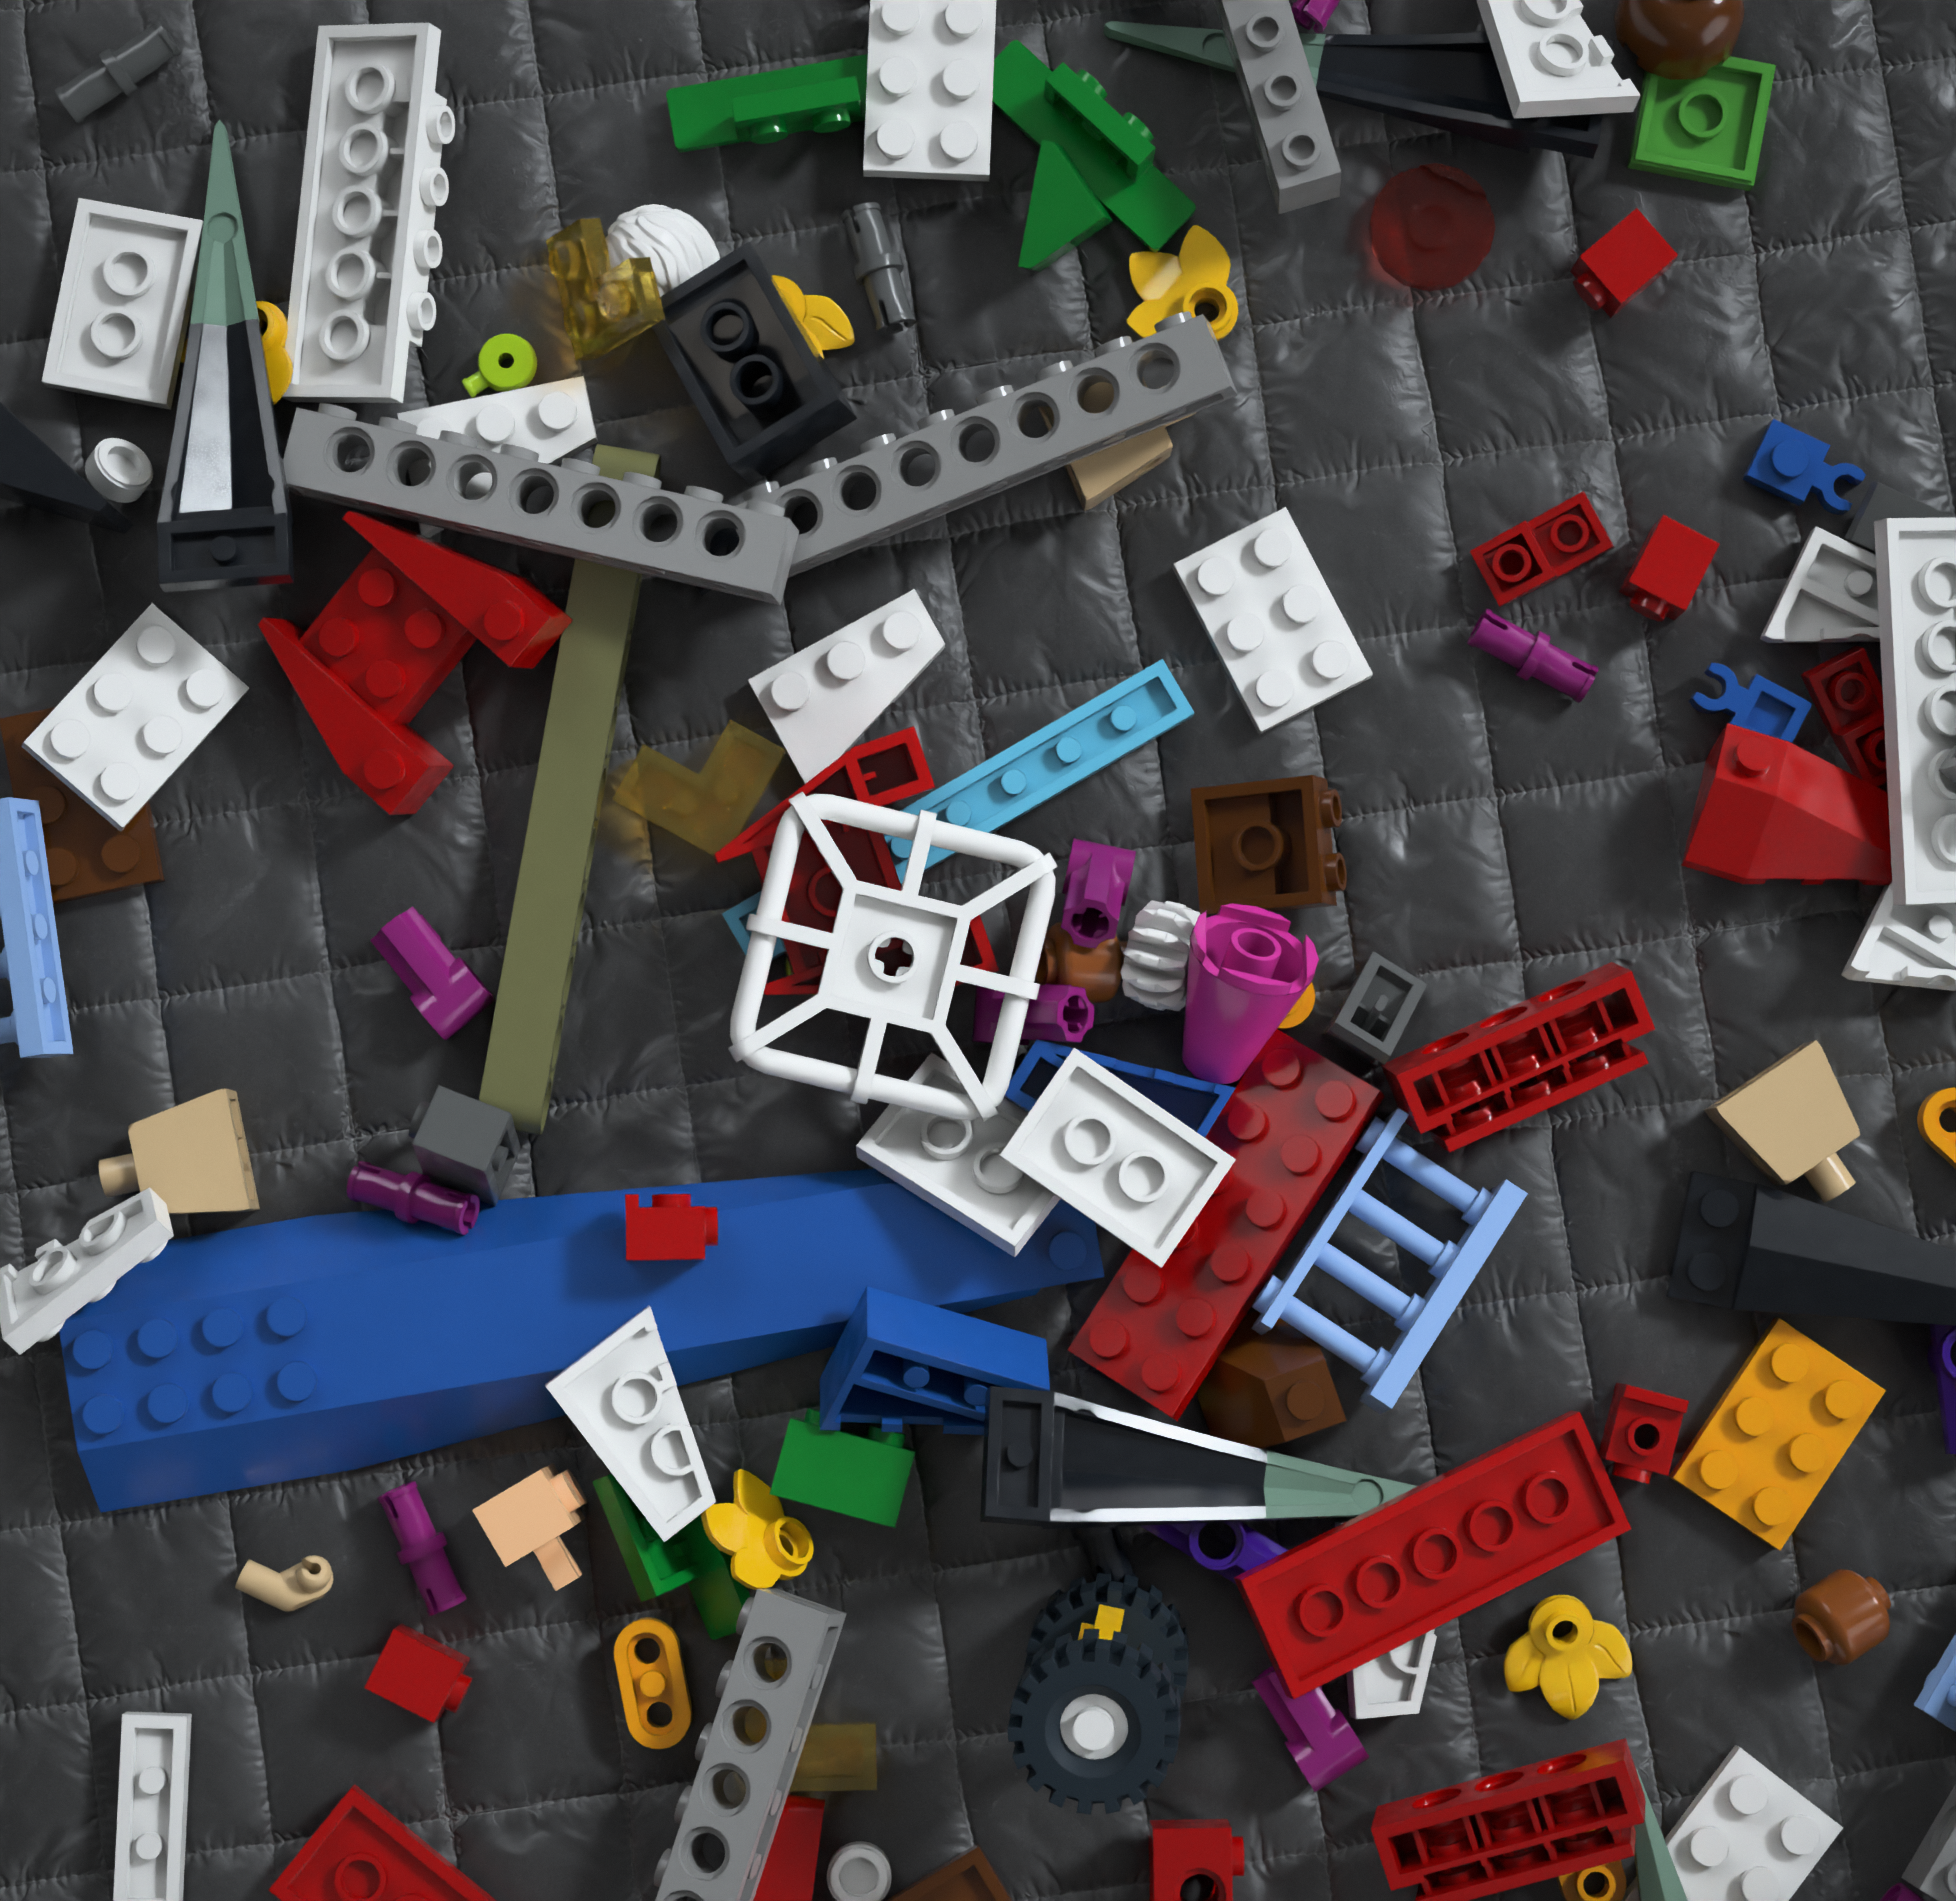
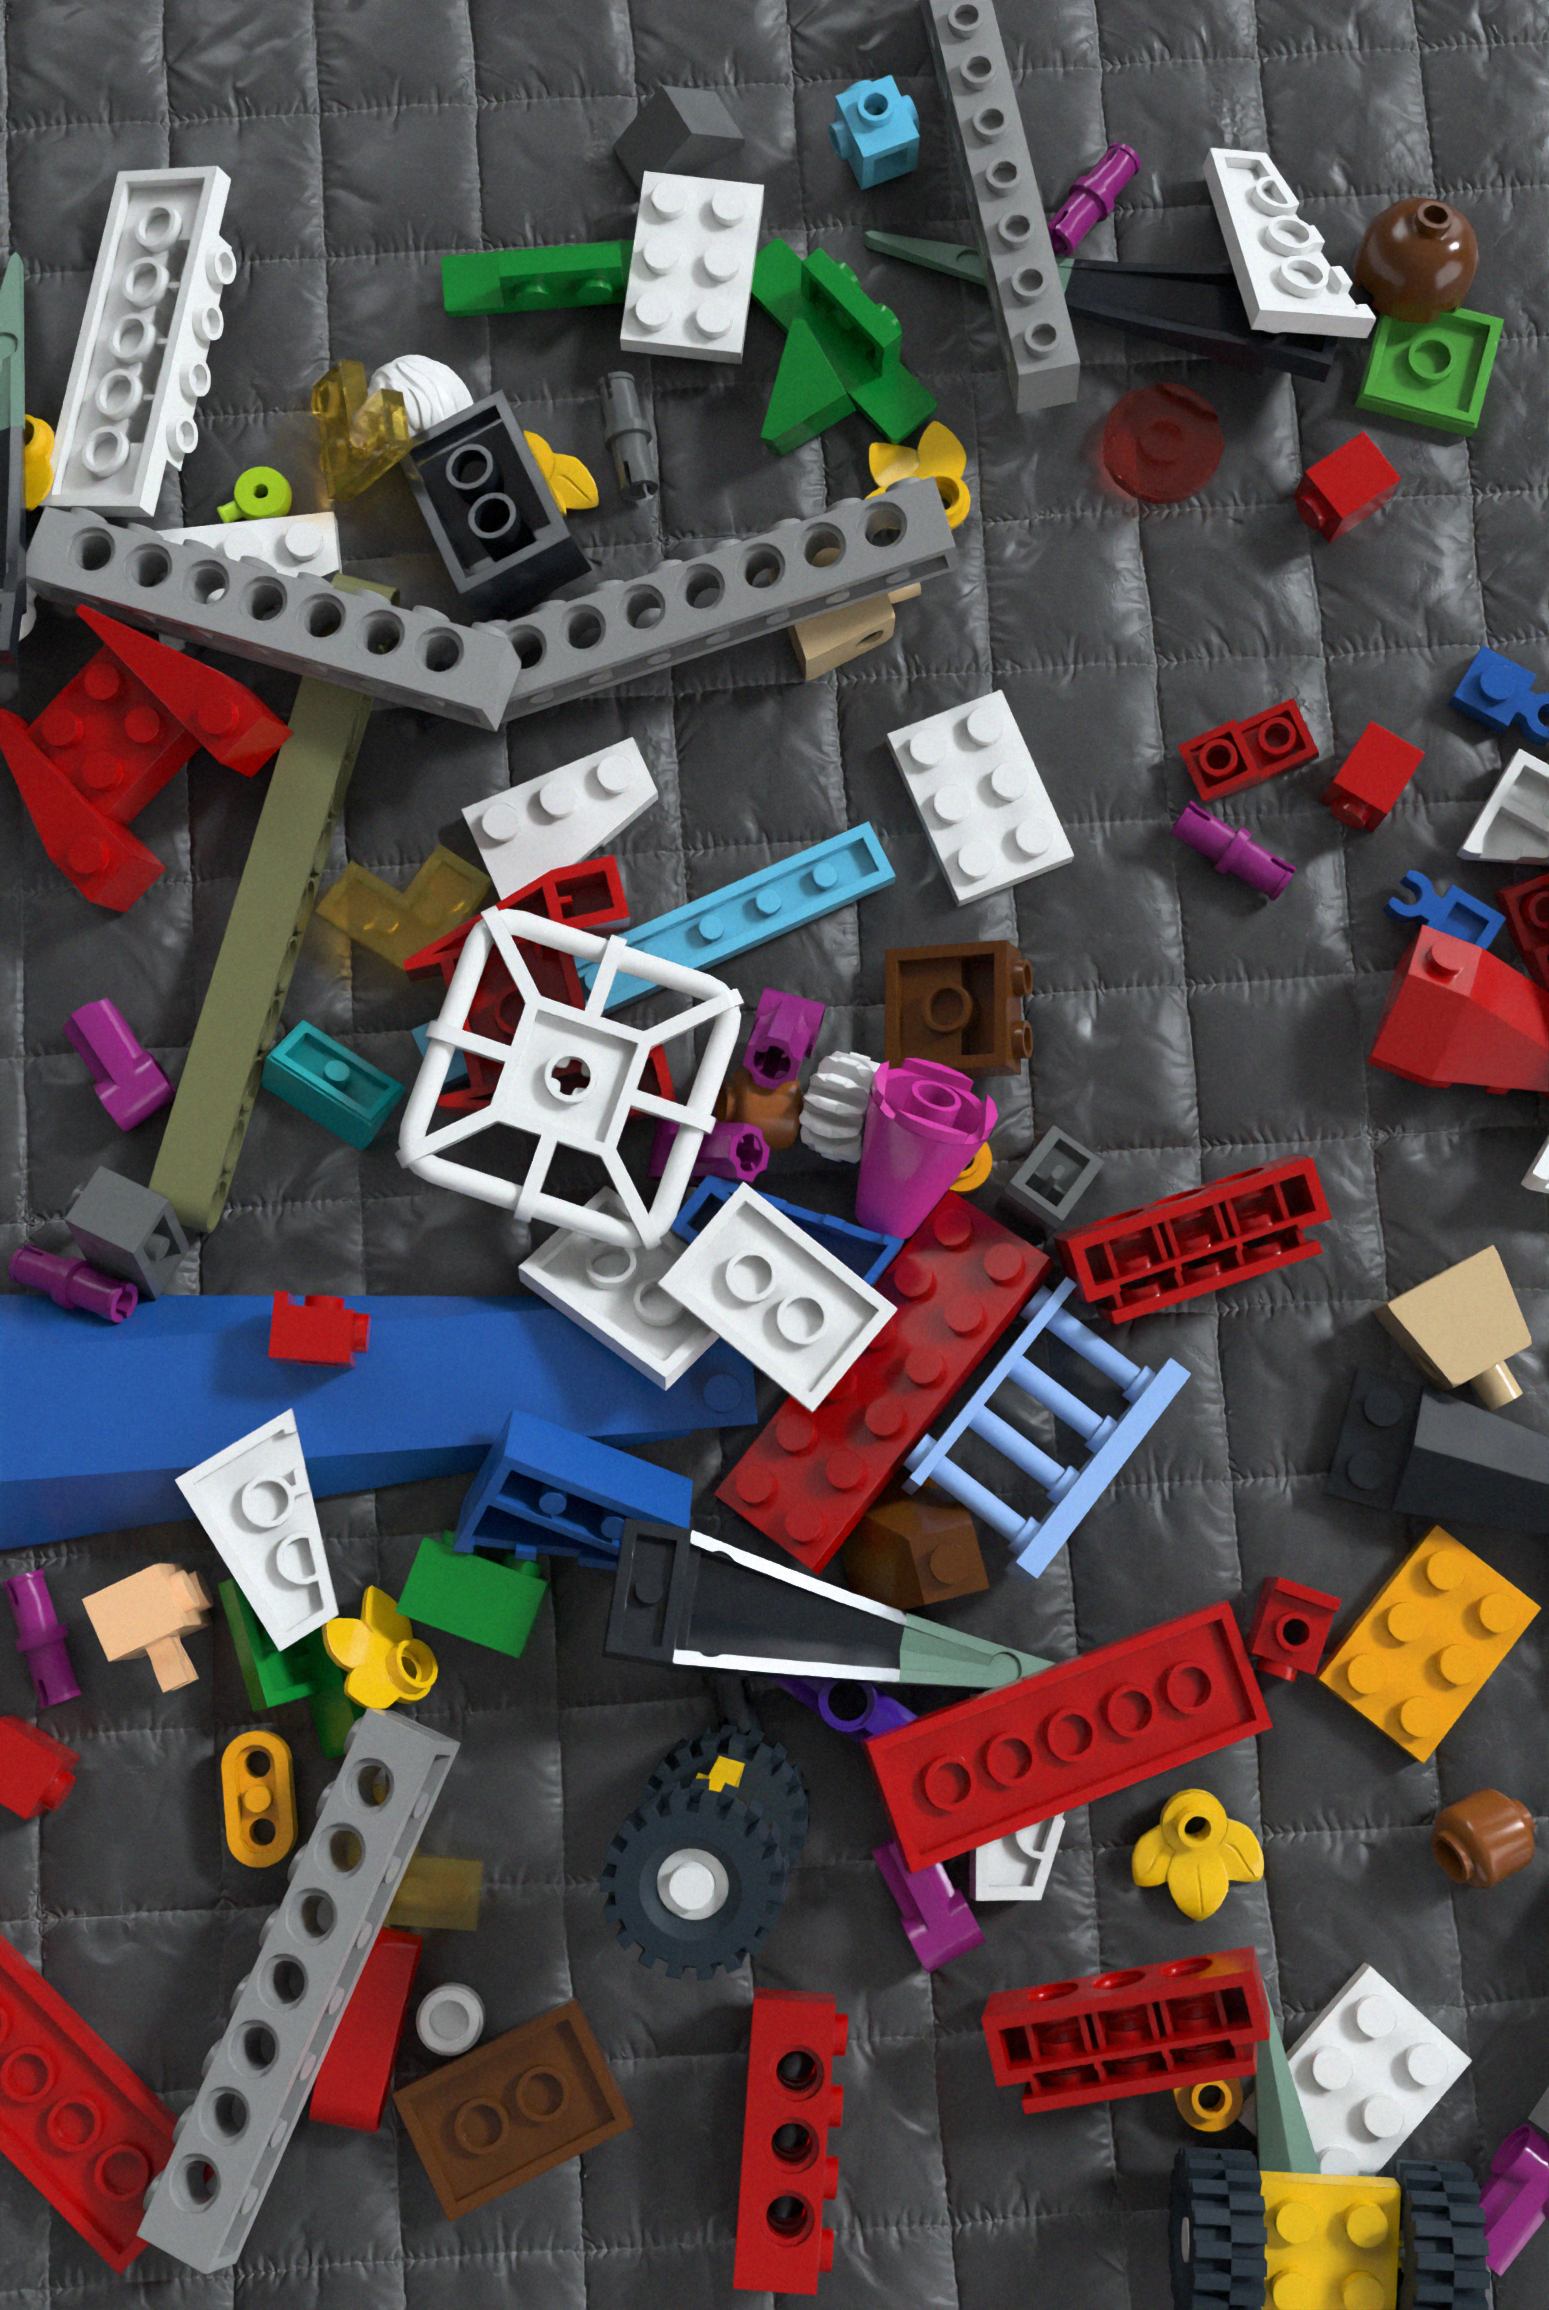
camera: 10 degrees right, 5 degrees down
(645, 972) = (331, 1084): none -> teal slope

